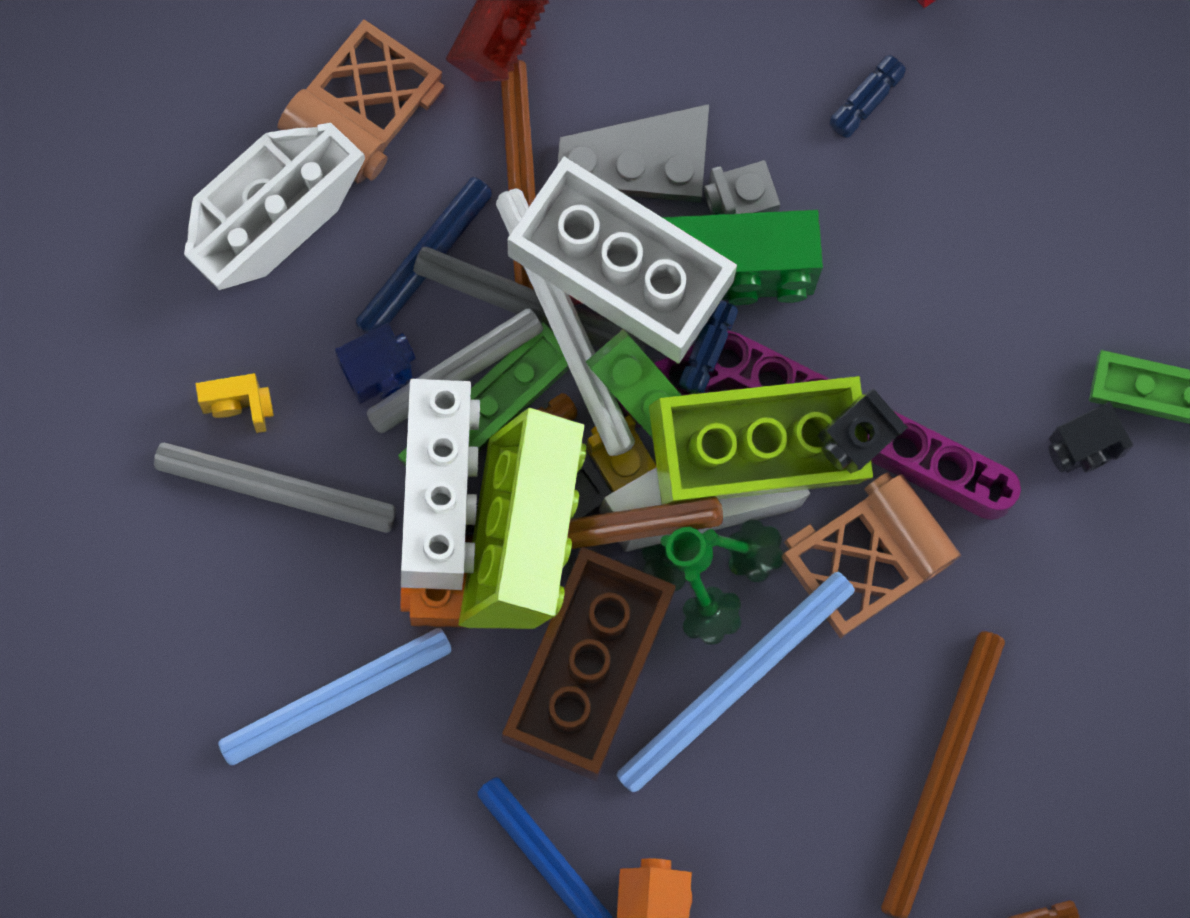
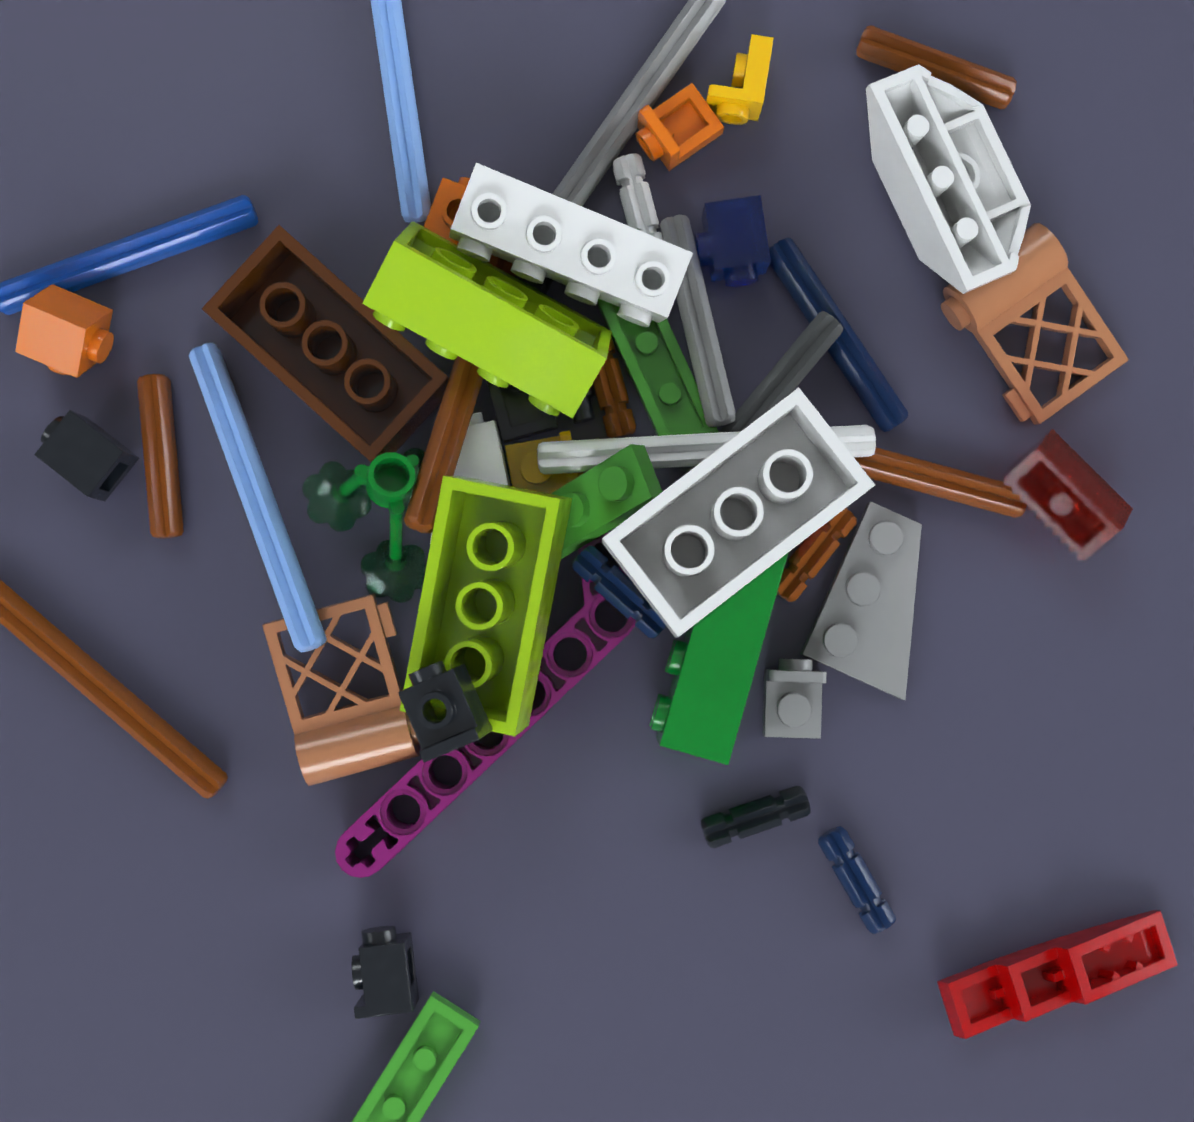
camera: 120 degrees right, 10 degrees up
(166, 251) = (902, 53): none -> dark orange axle
(293, 443) = (677, 127): none -> orange bracket
(369, 456) = (636, 194): none -> white axle
(730, 787) = (160, 456): none -> dark orange axle
(754, 843) = (85, 455): none -> black brick
(847, 191) = (755, 816): none -> black axle

